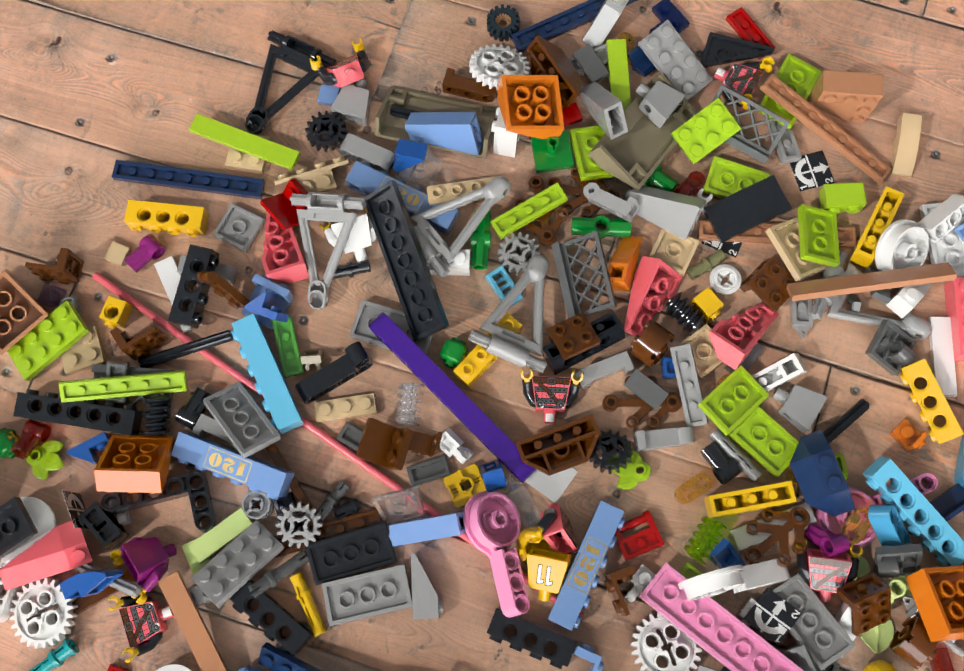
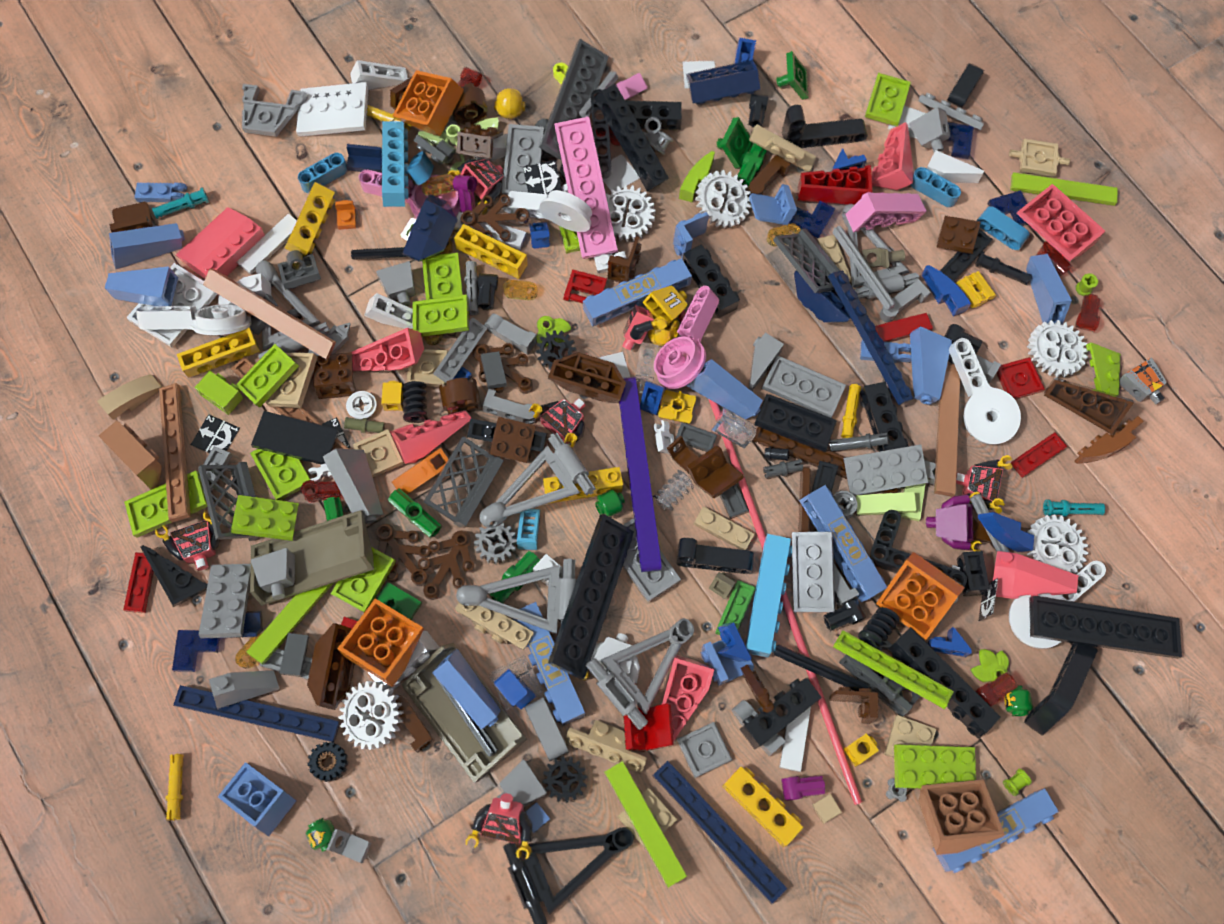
camera: 150 degrees left, 5 degrees down
(51, 295) = (909, 814): slope -> none
(67, 268) = (890, 818): reddish brown bracket -> none
(292, 517) = (821, 459): light grey gear -> none
(352, 269) = (634, 633): black pin -> none
(529, 211) = (459, 565): lime plate -> none
(605, 109) = (324, 598): light grey slope -> none
(611, 203) = (392, 521): light grey leg -> none
(704, 538) = (543, 252): clear neon green piece -> none

